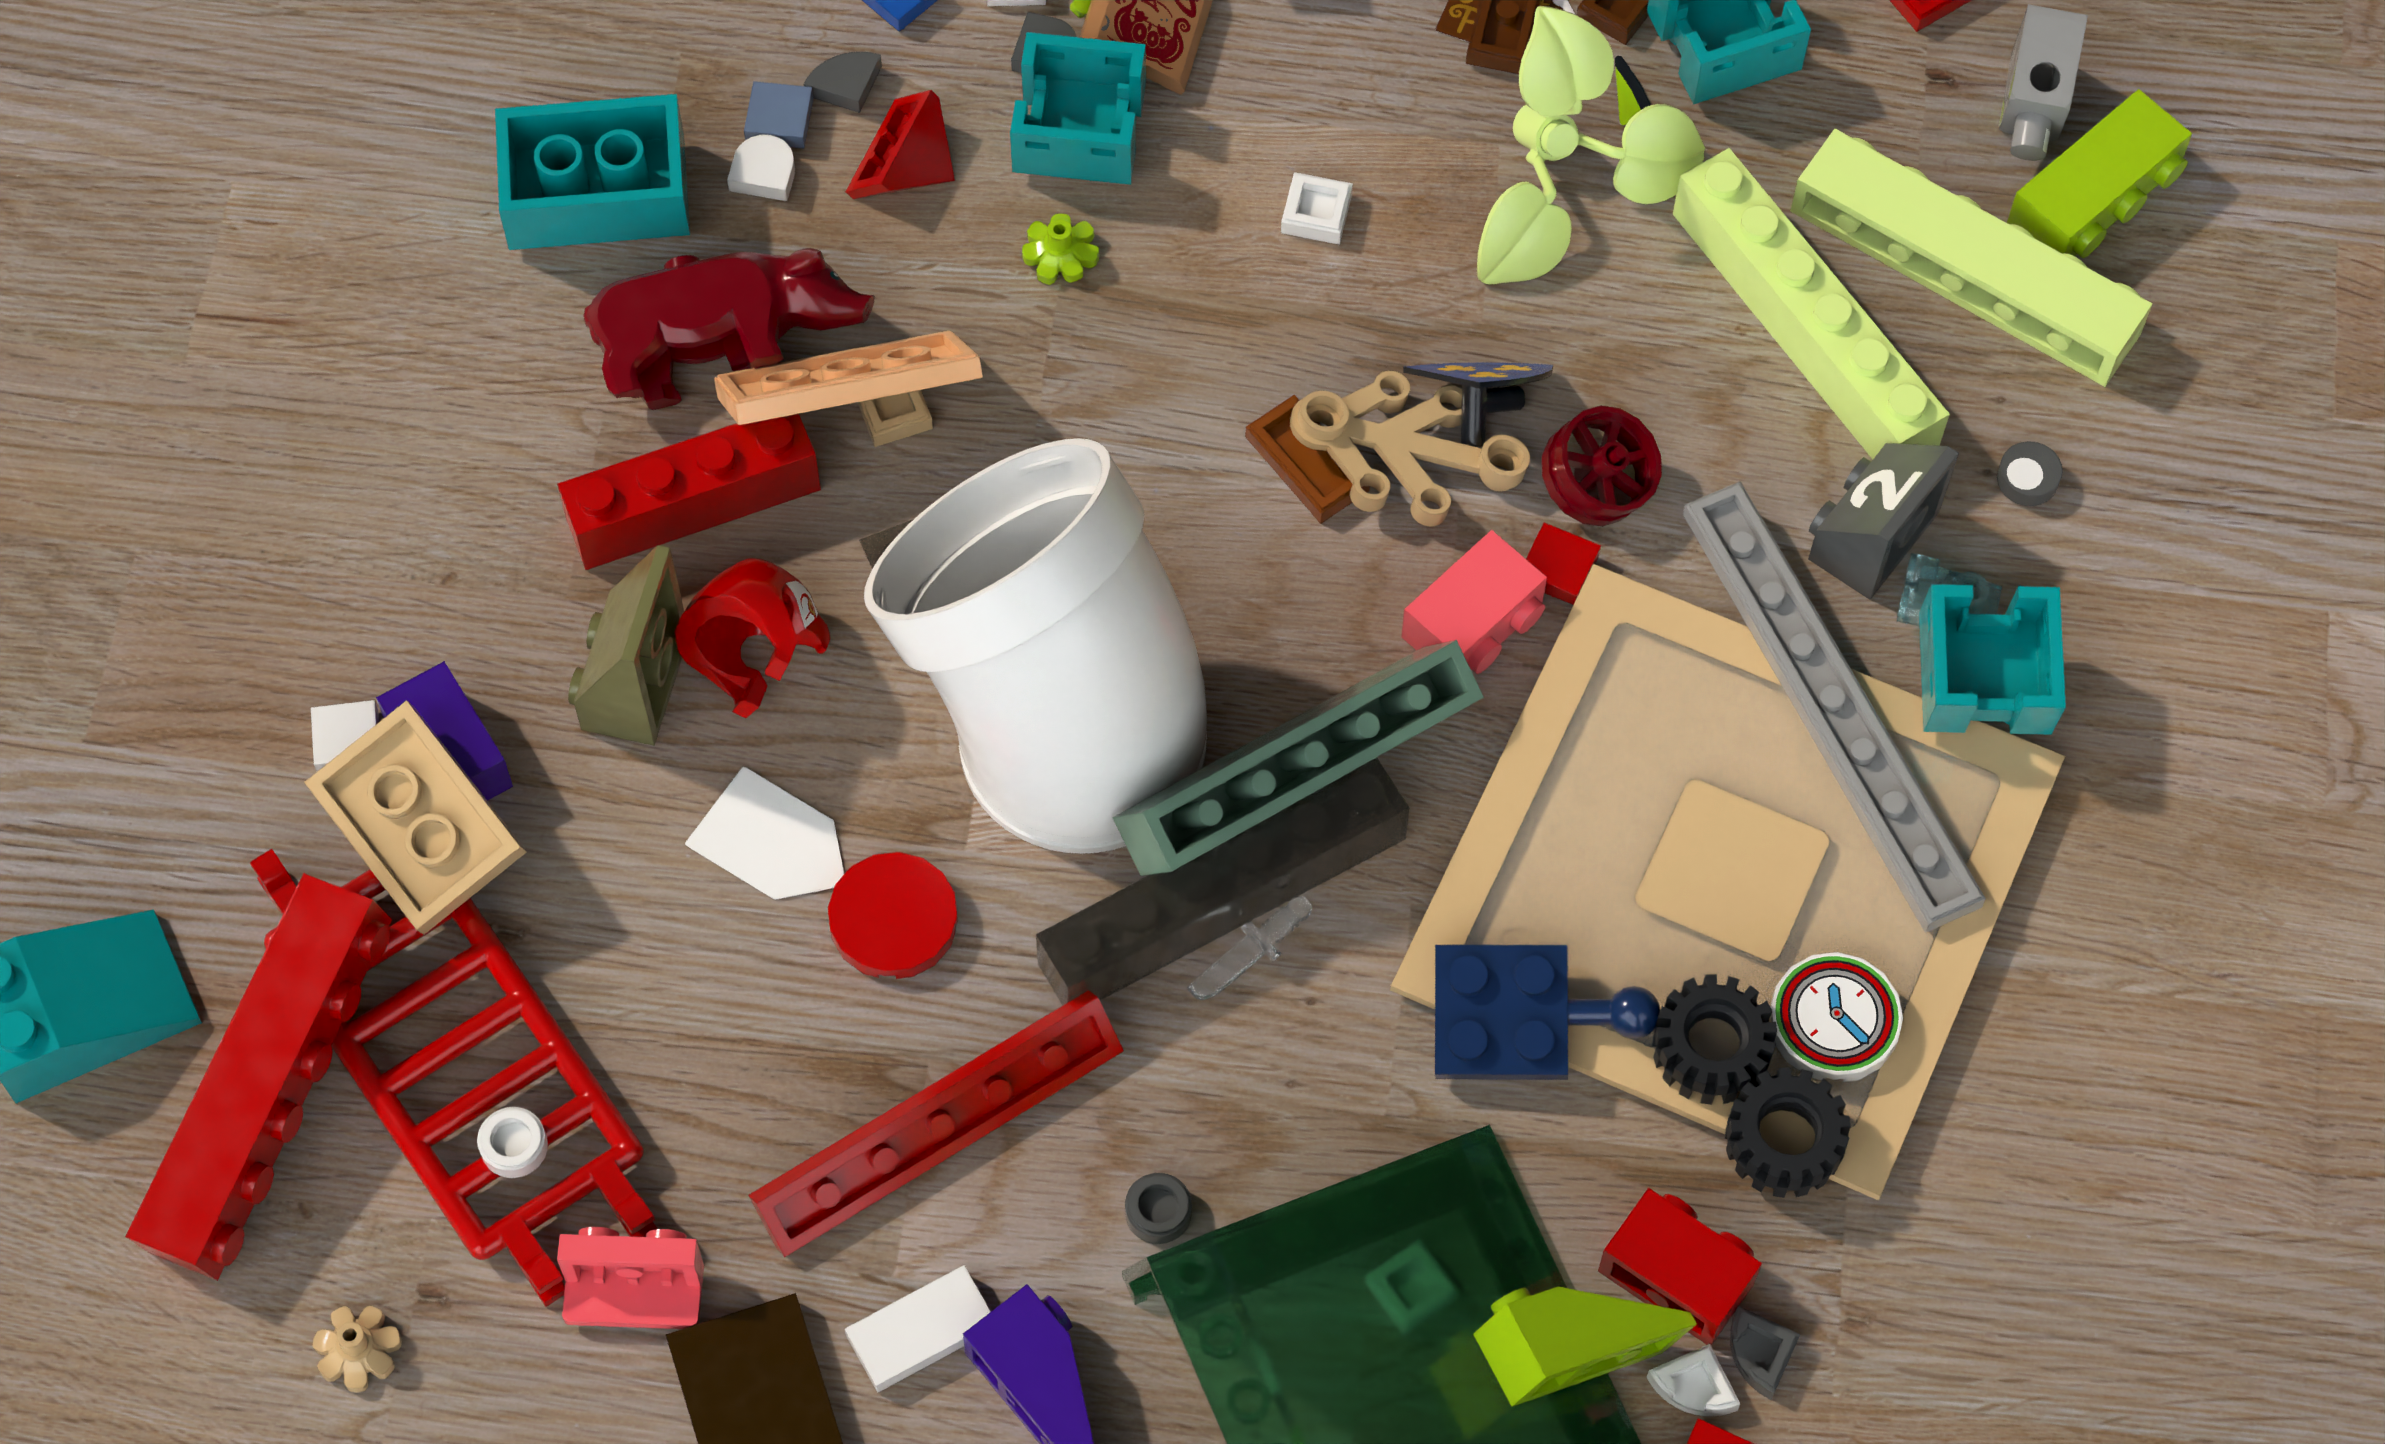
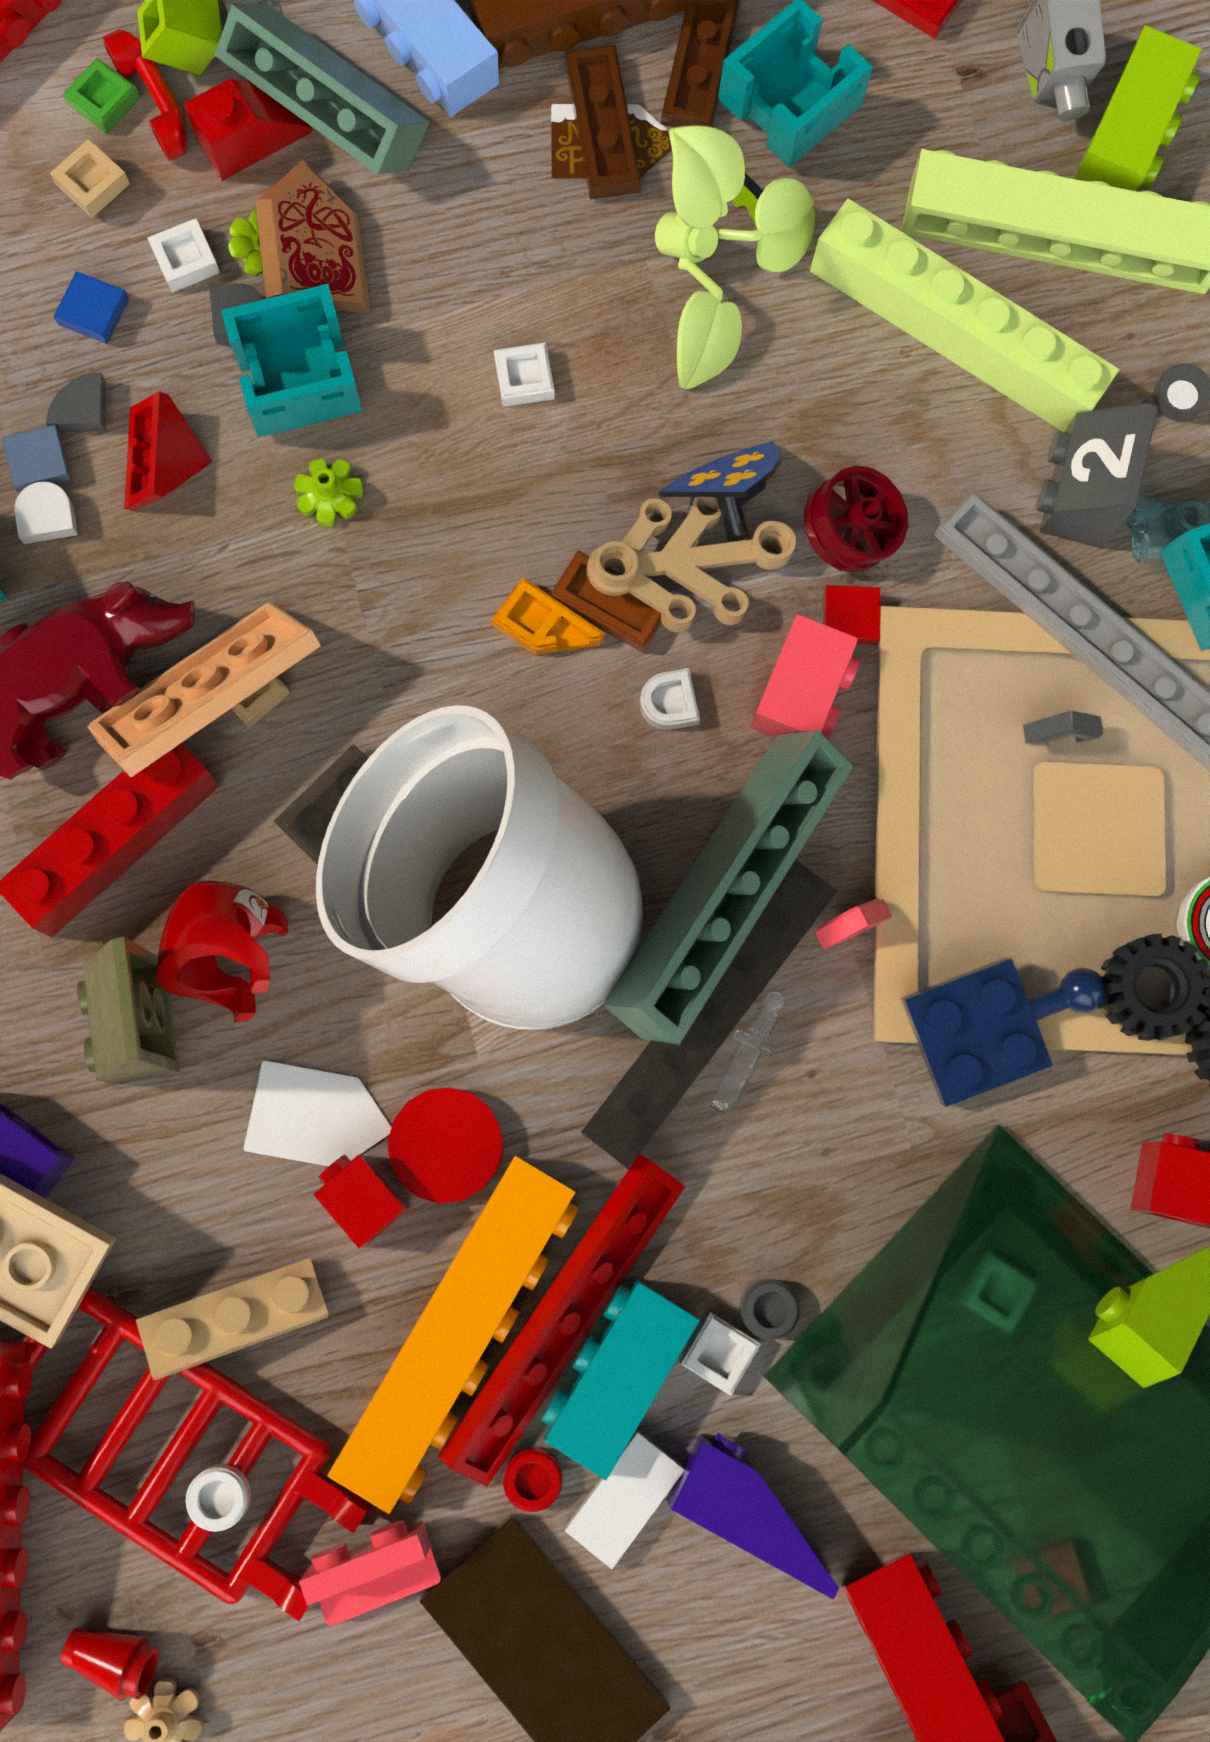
camera: 30 degrees left, 15 degrees up
(337, 1264) = (112, 1661): none -> red cone
(603, 986) = (231, 1319): none -> tan plate
(783, 927) = (359, 1198): none -> red brick
(821, 1089) = (452, 1335): none -> light orange brick
(834, 1272) = (532, 1479): none -> red tile
(970, 1199) = (618, 1377): none -> teal brick
(1086, 1230) = (720, 1353): none -> white tile
(1227, 454) = (543, 622): none -> light orange tile
(1325, 577) = (670, 700): none -> white tile
(1416, 855) = (852, 923): none -> coral tile
(1734, 744) = (1070, 723): none -> dark grey tile

